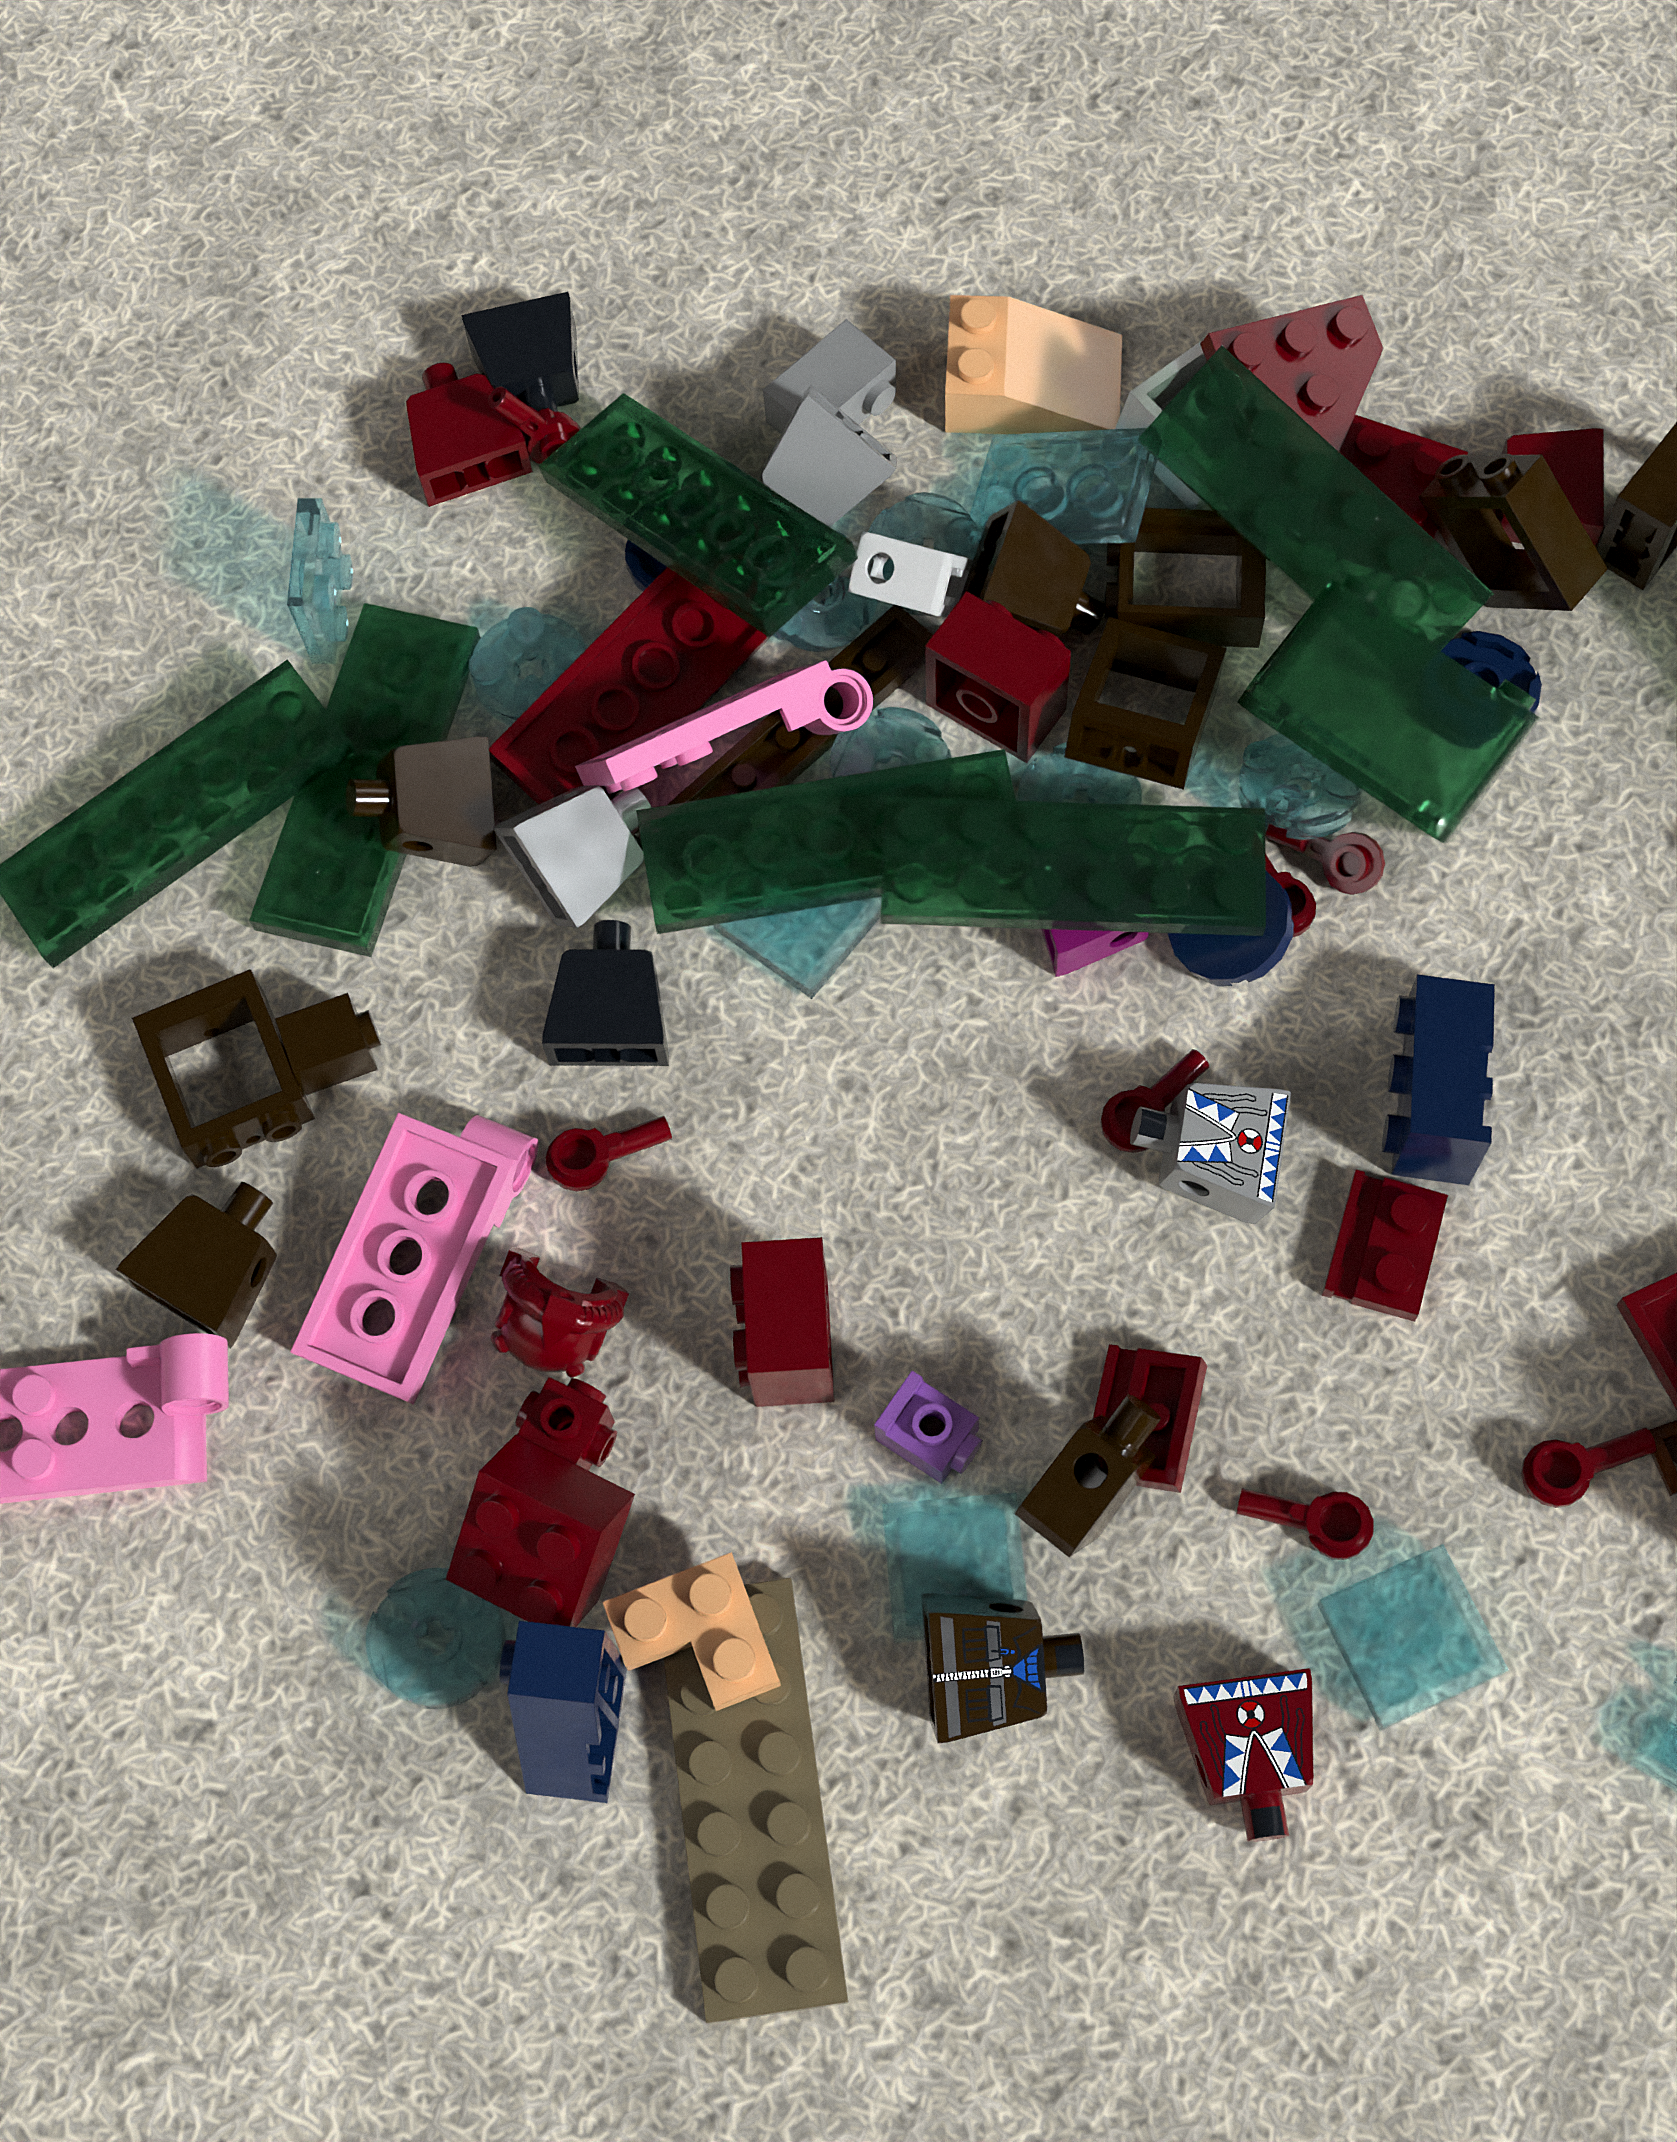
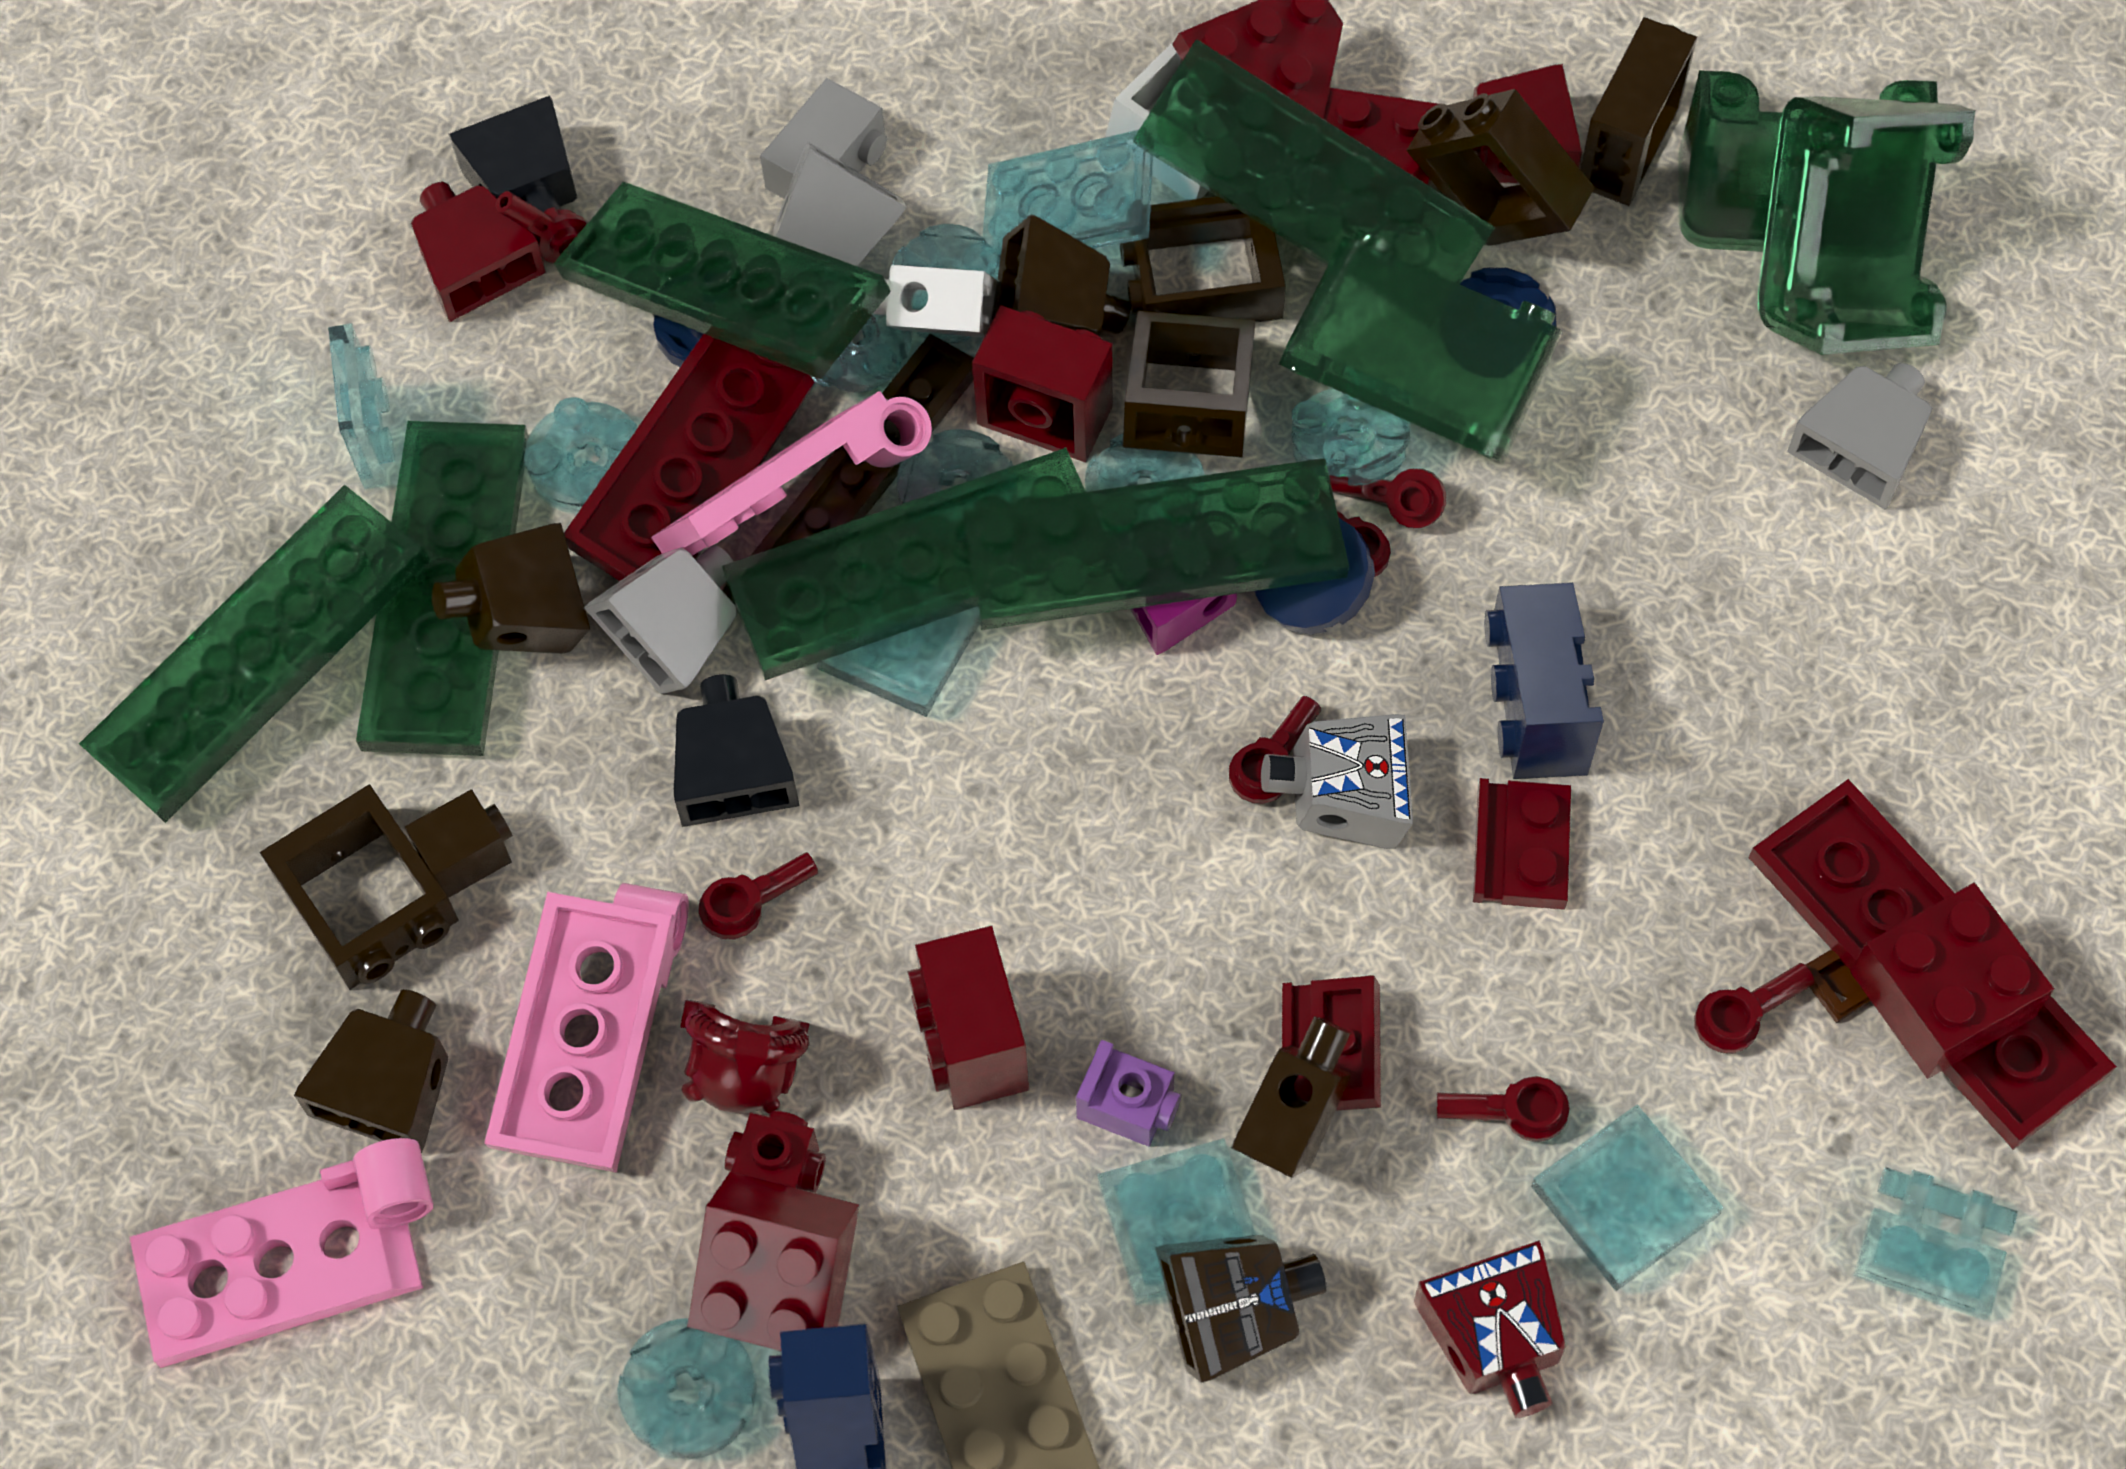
camera: 15 degrees left, 5 degrees down
(699, 1610) = (949, 1306): light nougat plate -> none
(1028, 369) = (1008, 98): light nougat slope -> none

